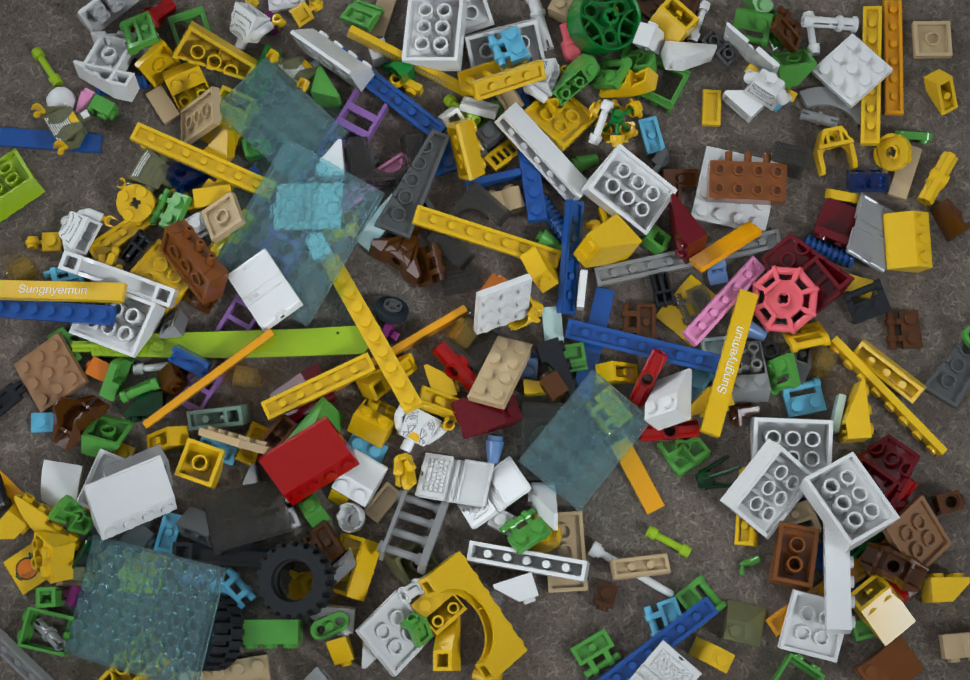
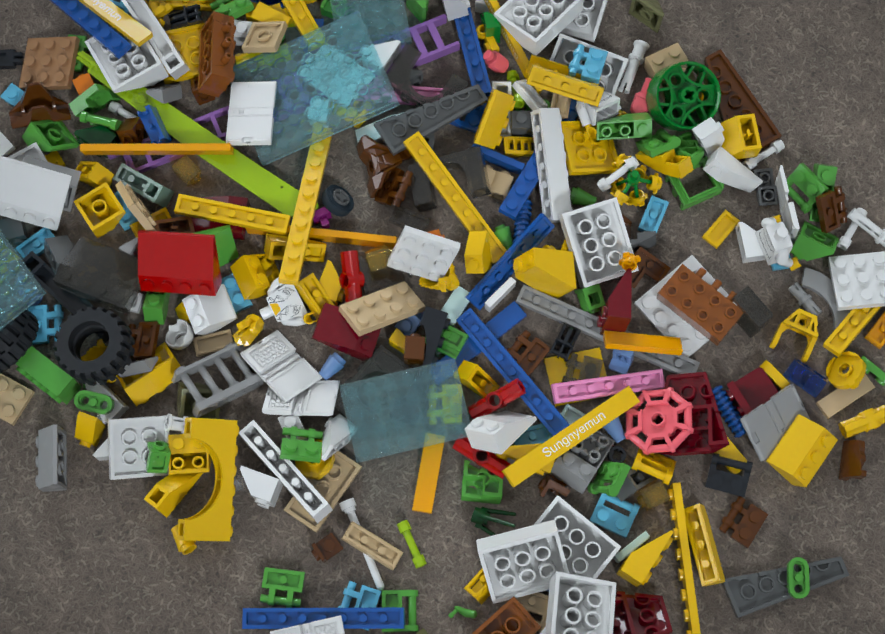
camera: 35 degrees right, 5 degrees down
(428, 98) = (496, 61): none -> coral arm
(667, 188) = (629, 261): none -> light orange plate

